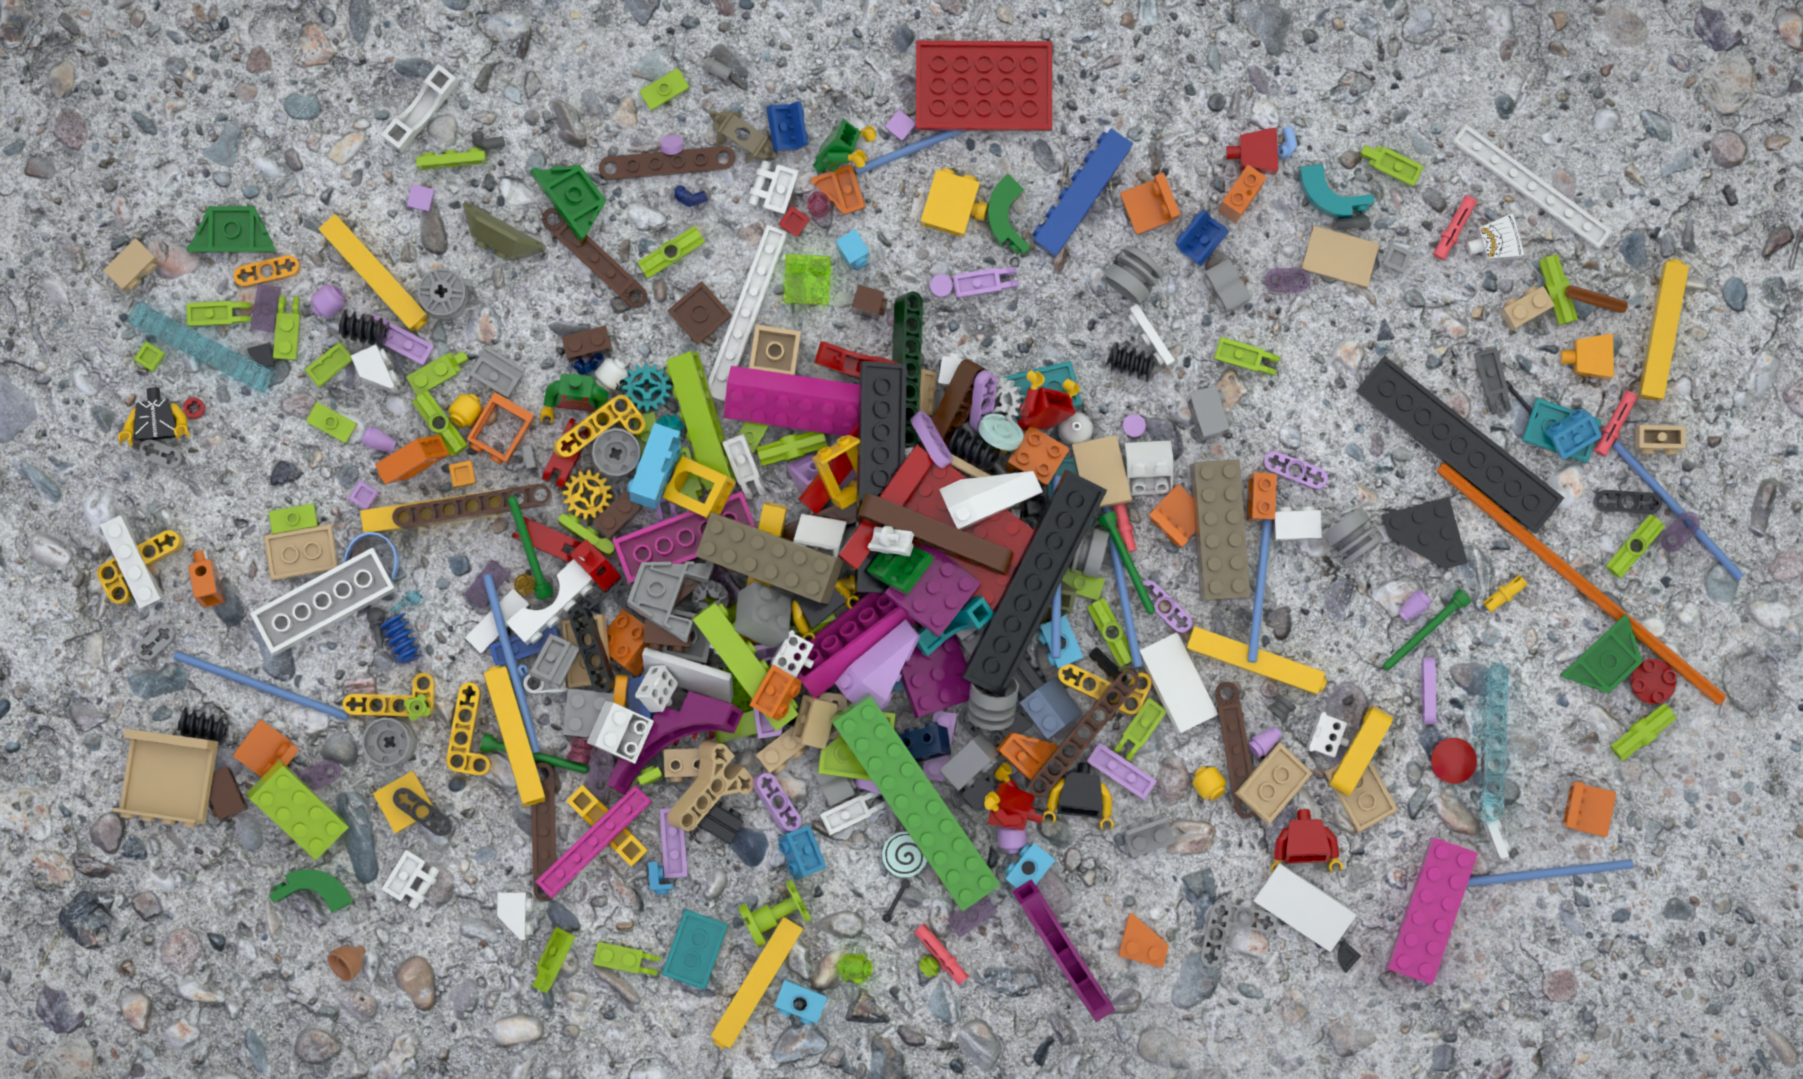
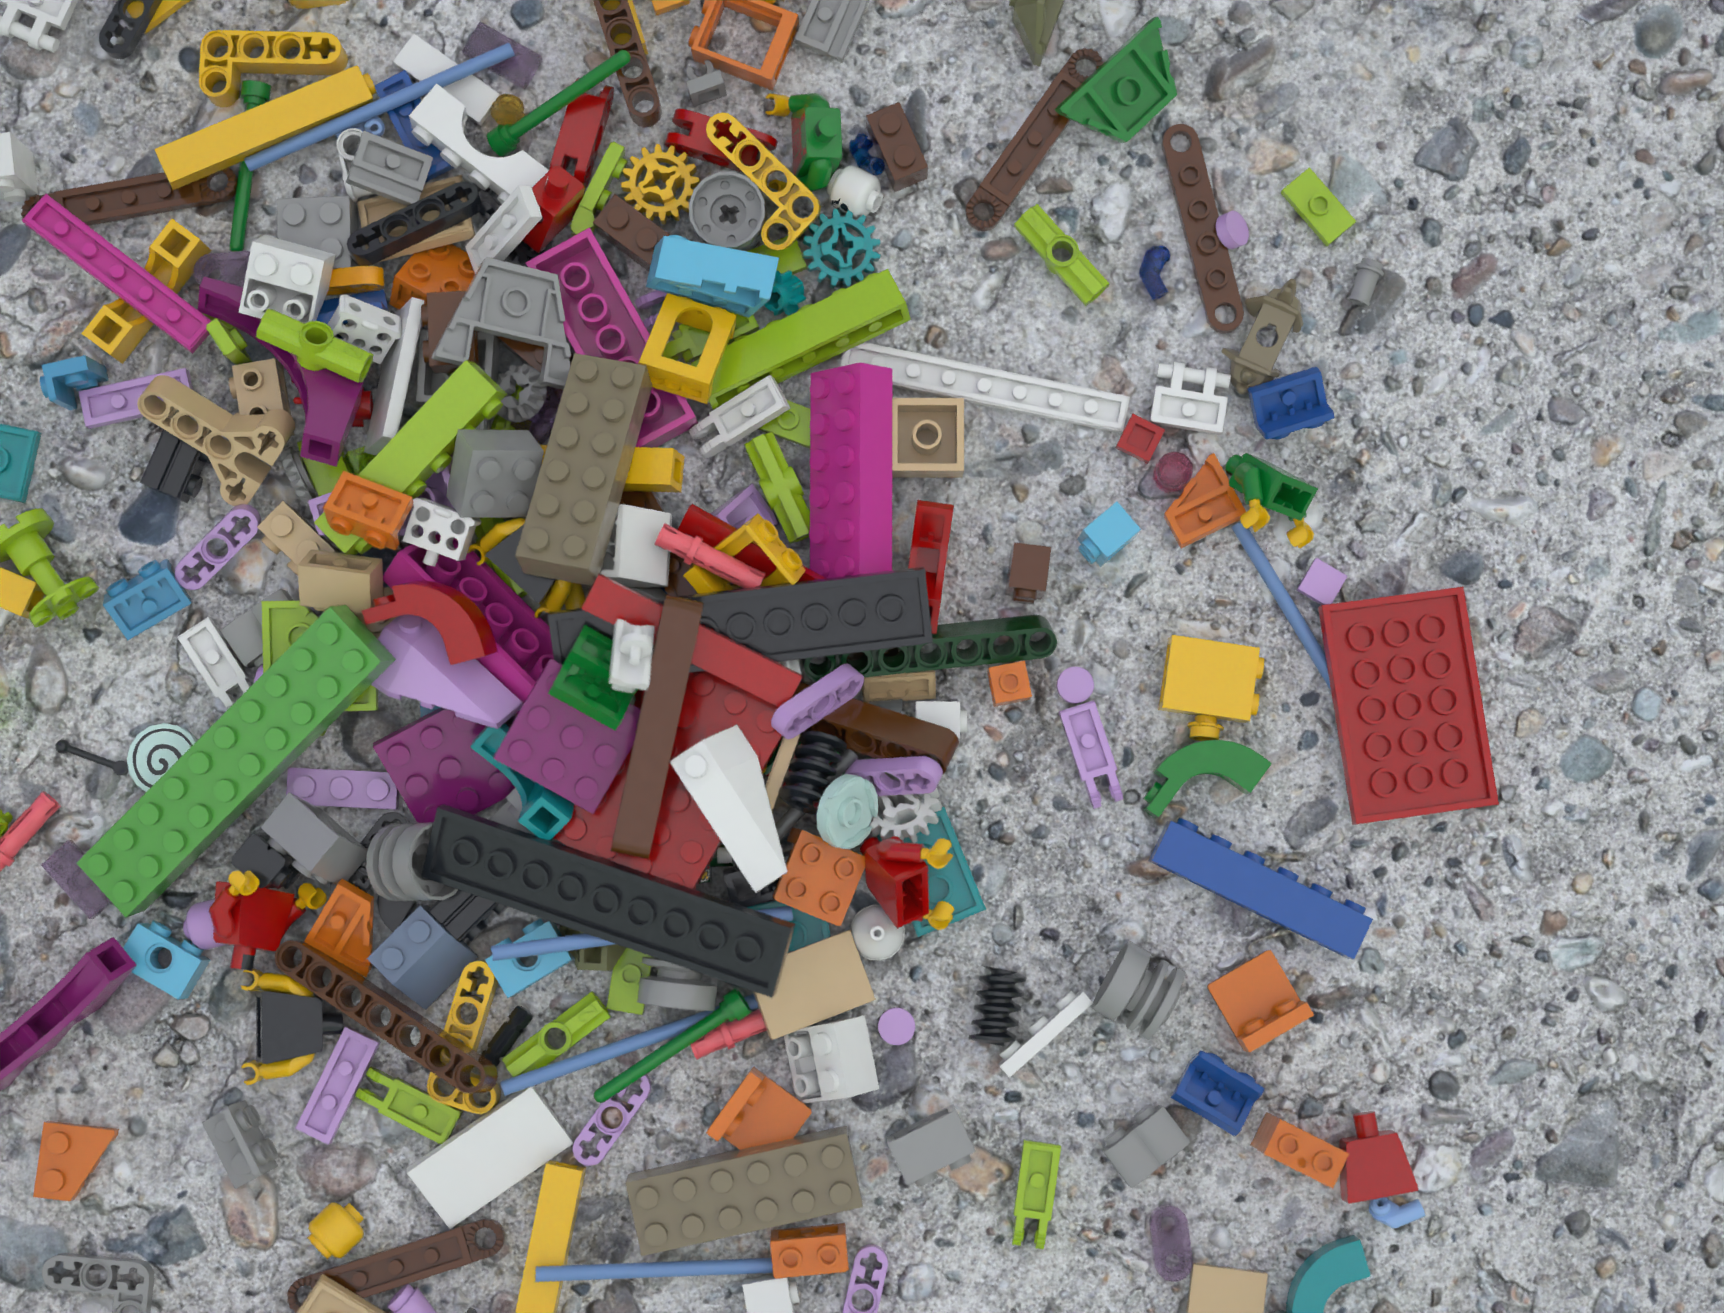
camera: 85 degrees right, 0 degrees up
(579, 751) = (253, 228): clear pink wheel -> none
(608, 593) = (505, 227): none -> white plate
(665, 716) = (314, 345): none -> lime piece
(699, 313) = (972, 313): reddish brown plate -> none
(807, 279) = (1051, 472): clear neon green bracket -> none
(830, 498) = (711, 559): none -> coral pin
(841, 655) = (449, 610): none -> red arch
(927, 742) = (336, 765): dark blue brick -> none
(935, 325) = (1009, 683): none -> orange brick

